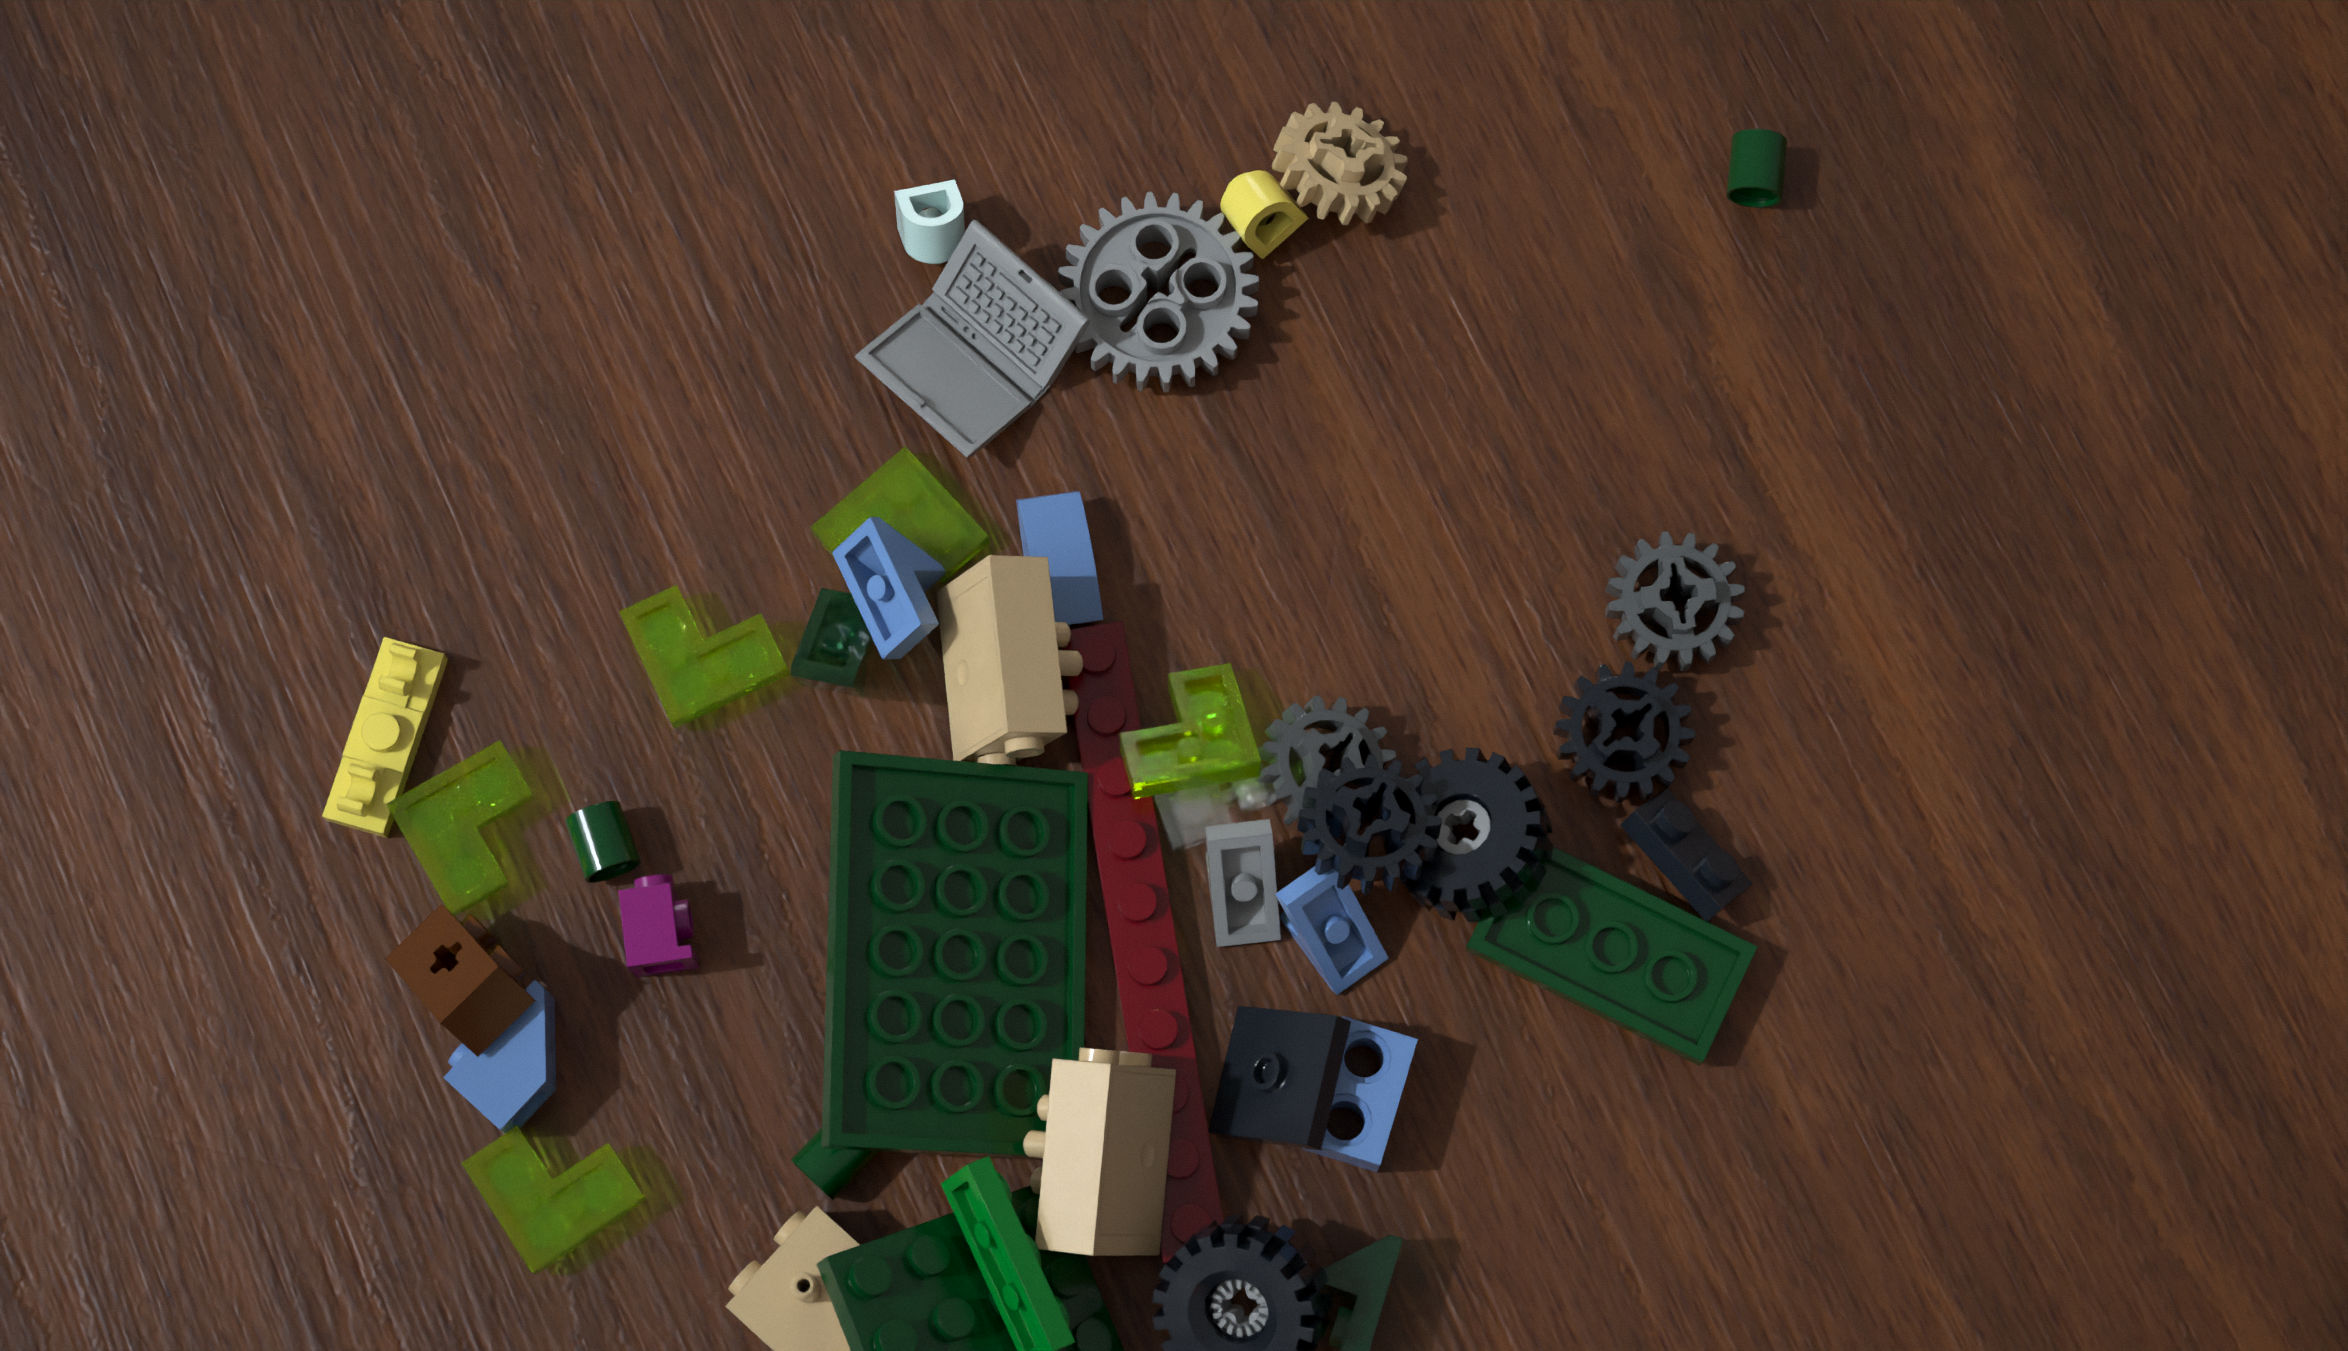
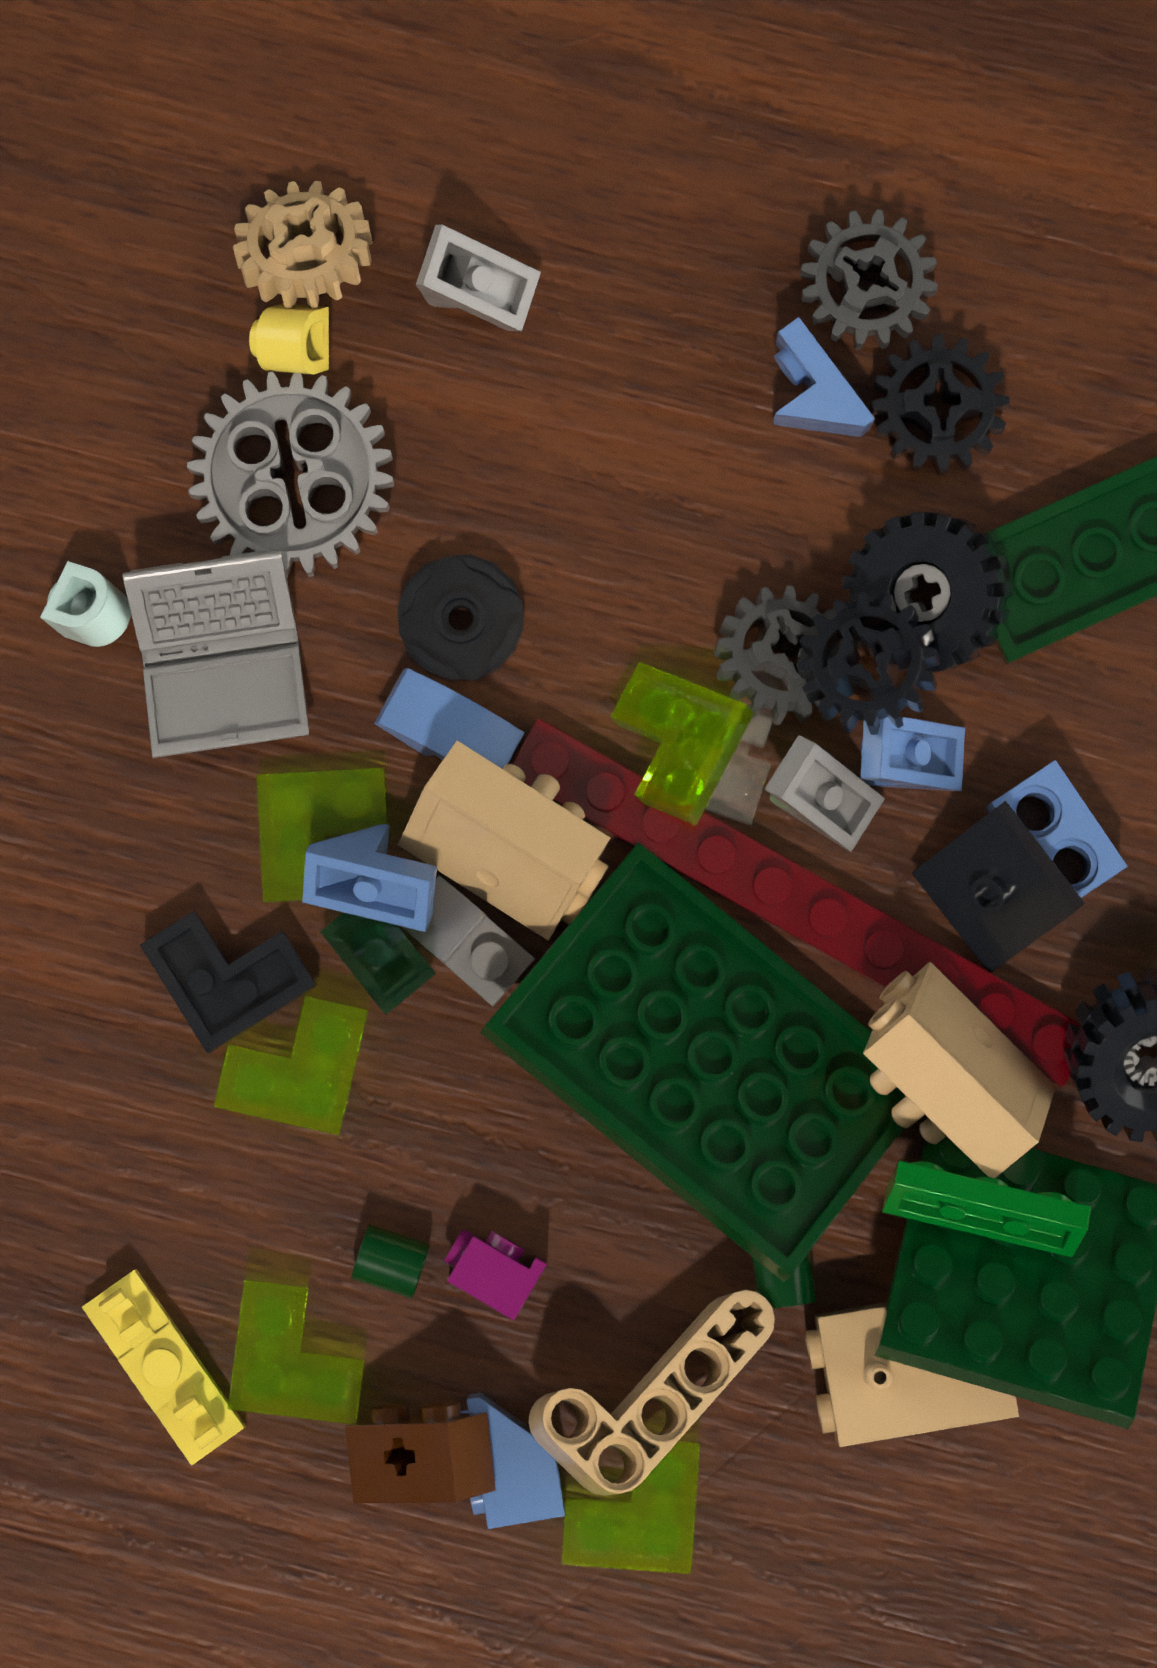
camera: 50 degrees left, 10 degrees up
(666, 1125) = (663, 1383): none -> tan beam
(711, 551) = (219, 996): none -> black plate
(904, 702) = (472, 944): none -> light grey slope
(1147, 472) = (453, 585): none -> black plate
(1421, 306) = (476, 279): none -> light grey slope
(1552, 642) = (829, 401): none -> medium blue slope
(1686, 854) = (1071, 436): black plate -> none

